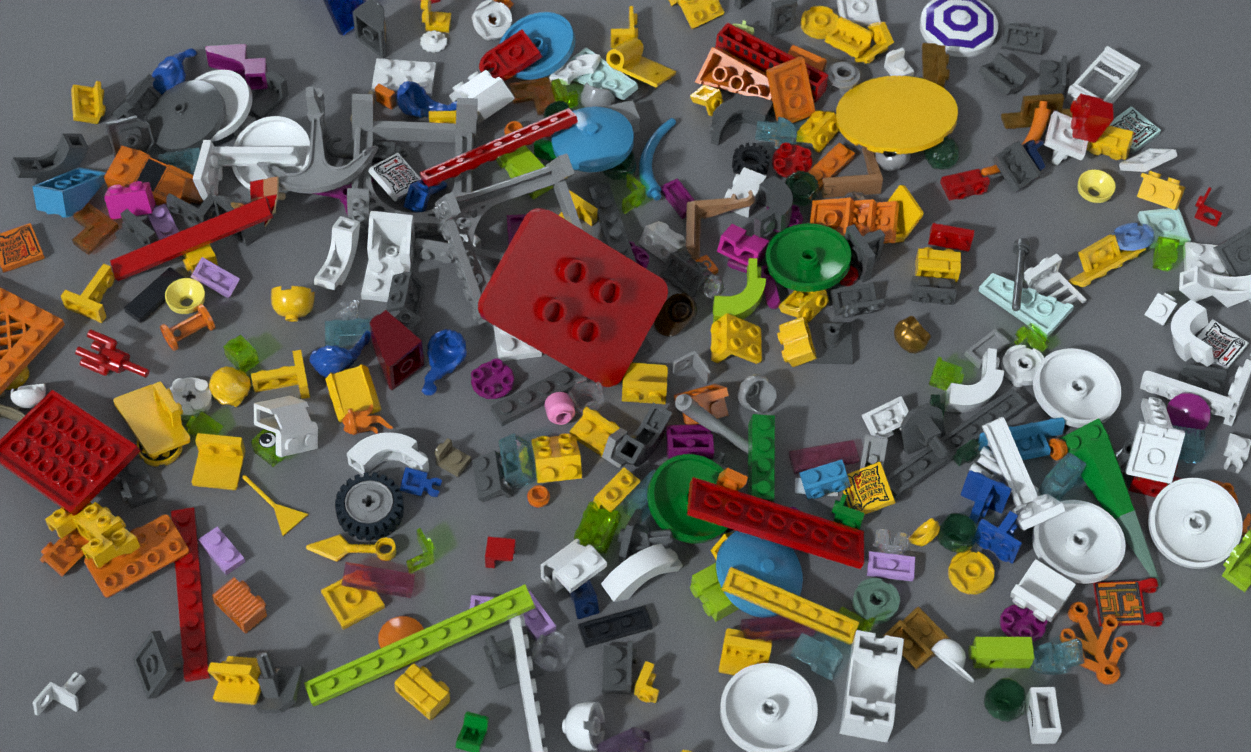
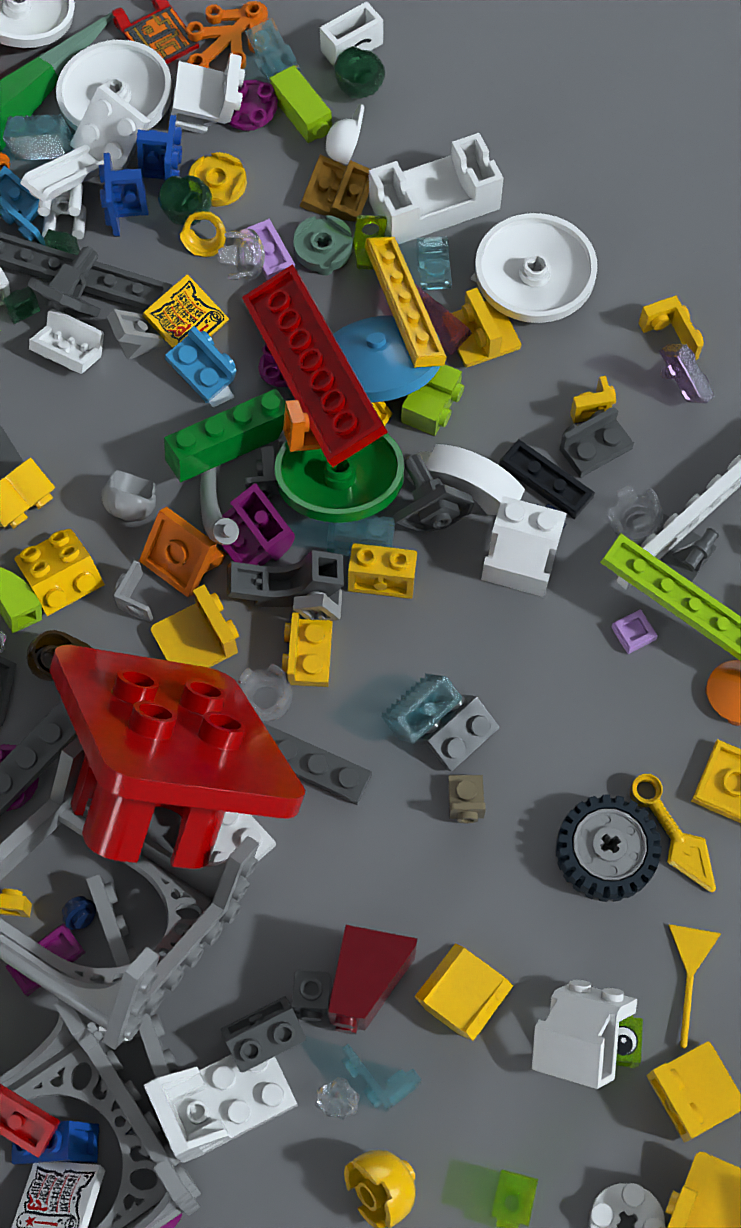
camera: 120 degrees left, 10 degrees up
(203, 424) = (660, 1158): clear neon green bracket -> none
(229, 386) = (571, 1174): yellow hair -> none
(283, 377) = (502, 1106): yellow bracket -> none
(336, 359) = (440, 1043): blue hair -> none
(341, 254) = (262, 1178): white arch -> none
(360, 421) = (494, 948): orange piece -> none
(378, 580) = (696, 765): clear pink tile -> none
(386, 447) = (520, 895): white arch -> none
(416, 482) = (531, 814): blue plate -> none
(428, 555) = (626, 729): clear neon green bracket -> none
(445, 353) = (322, 912): blue hair -> none
(492, 379) = (317, 829): magenta dish -> none
(499, 549) = (555, 650): red panel -> none
(538, 496) = (444, 661): orange plate -> none
(538, 621) = (597, 578): lavender plate -> none
(556, 458) = (374, 674): yellow bracket -> none
(559, 408) = (304, 712): bright pink head -> none
(583, 725) = (695, 429): white cylinder -> none
(597, 527) = (445, 562): clear neon green bracket -> none
(820, 455) = (164, 389): clear pink tile -> none
(846, 515) = (233, 330): green bracket -> none

